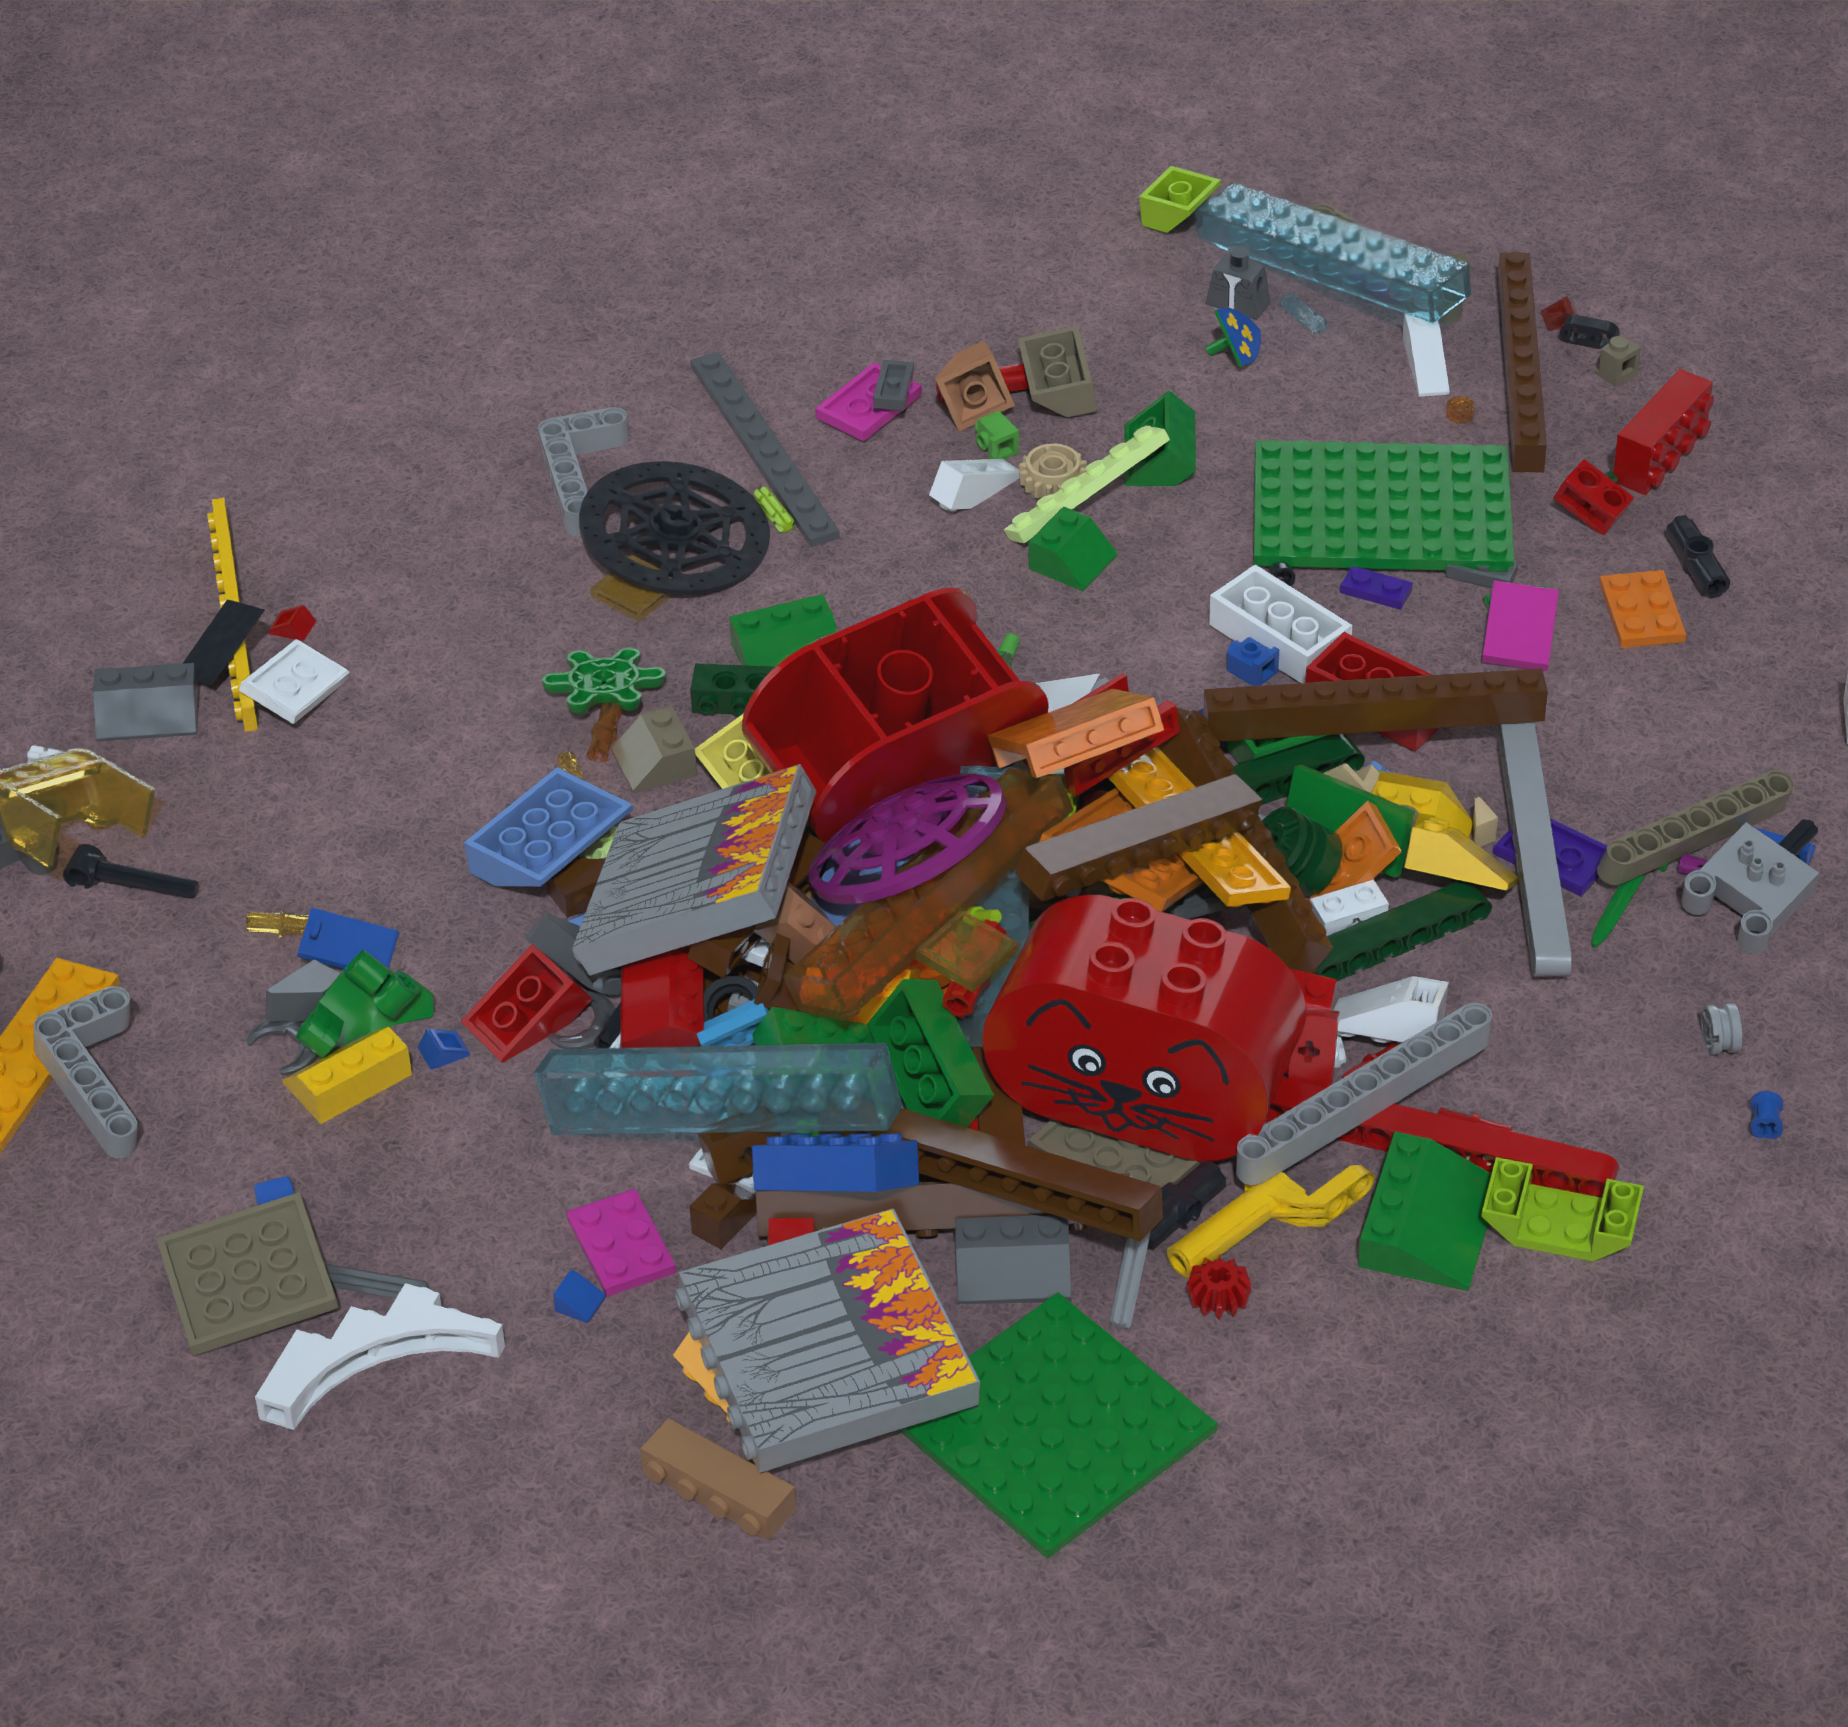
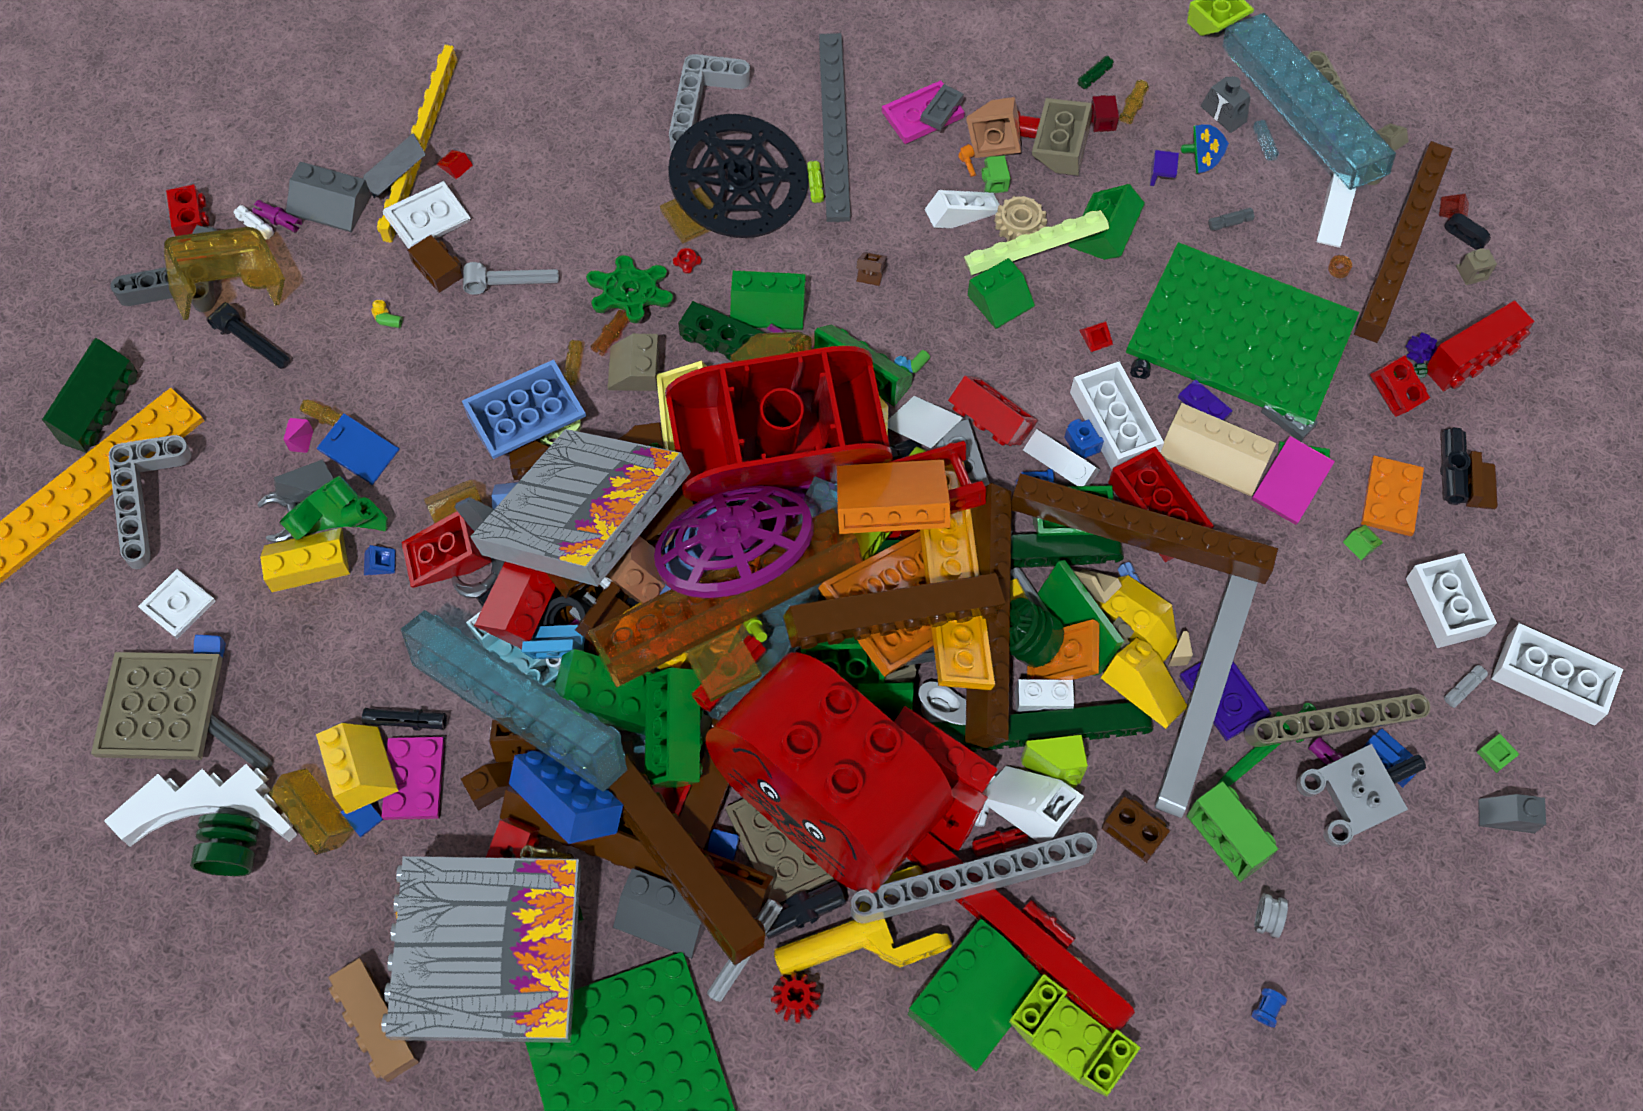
camera: 20 degrees right, 20 degrees up
(89, 740) = (276, 216): none -> magenta pin
(203, 1172) = (176, 603): none -> white tile
(261, 952) = (298, 435): none -> dark pink slope
(295, 805) = (383, 317): none -> bright green arm
(333, 728) = (435, 263): none -> reddish brown brick
(400, 728) = (477, 277): none -> light grey axle
(429, 1368) = (225, 845): none -> dark green wheel
(500, 957) = (443, 503): none -> clear yellow panel
(516, 1305) = (311, 811): none -> clear yellow brick
(534, 1199) = (415, 719): none -> black pin
(544, 1243) = (356, 765): none -> yellow slope
(657, 632) = (686, 254): none -> red plate
(896, 573) = (870, 268): none -> reddish brown slope
(947, 431) = (965, 154): none -> orange hand
(1059, 304) = (1095, 72): none -> dark green axle
(1097, 339) = (1104, 113): none -> dark red brick
(1123, 319) = (1134, 102): none -> clear yellow pin
(1142, 657) = (992, 411): none -> red brick
(1196, 367) = (1164, 165): none -> dark purple panel
(1210, 560) = (1097, 336): none -> red slope
(1231, 676) = (1061, 459): none -> white slope
(1306, 401) = (1231, 219): none -> dark grey axle
(1394, 954) = (1057, 758): none -> lime slope
(1418, 620) = (1217, 449): none -> tan slope
(1525, 1003) = (1131, 834): none -> reddish brown brick
(1599, 454) = (1421, 348): none -> dark purple gear
(1631, 662) = (1362, 542): none -> bright green slope
(1635, 962) = (1232, 831): none -> bright green brick
(1737, 565) = (1481, 483): none -> reddish brown panel
(1761, 678) = (1450, 600): none -> white brick
(1822, 758) = (1466, 686): none -> light grey axle

